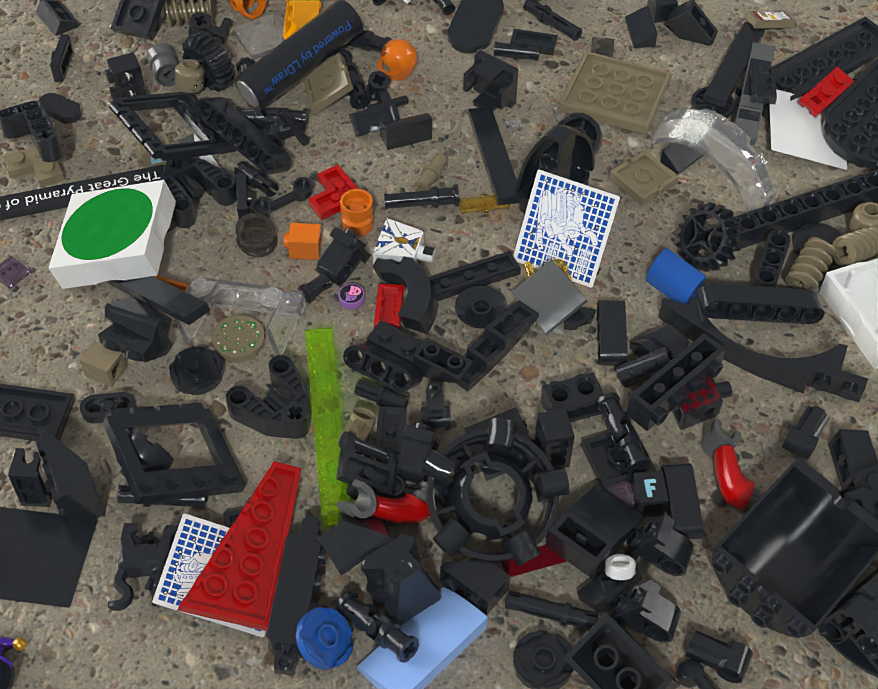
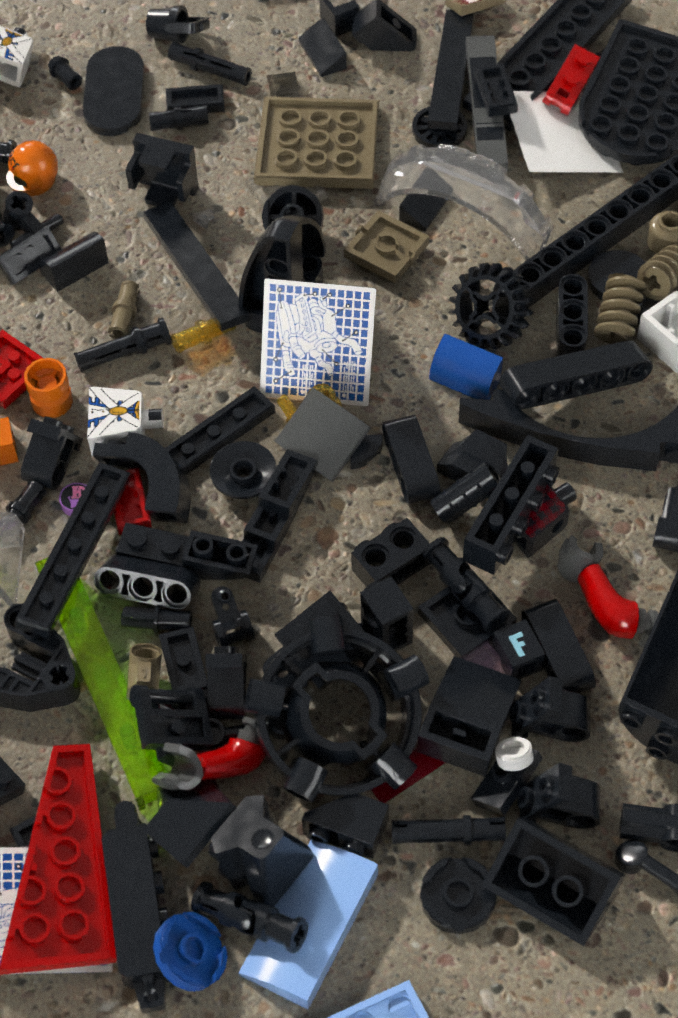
camera: 15 degrees left, 5 degrees up
(334, 328) = (72, 551): none -> black tile

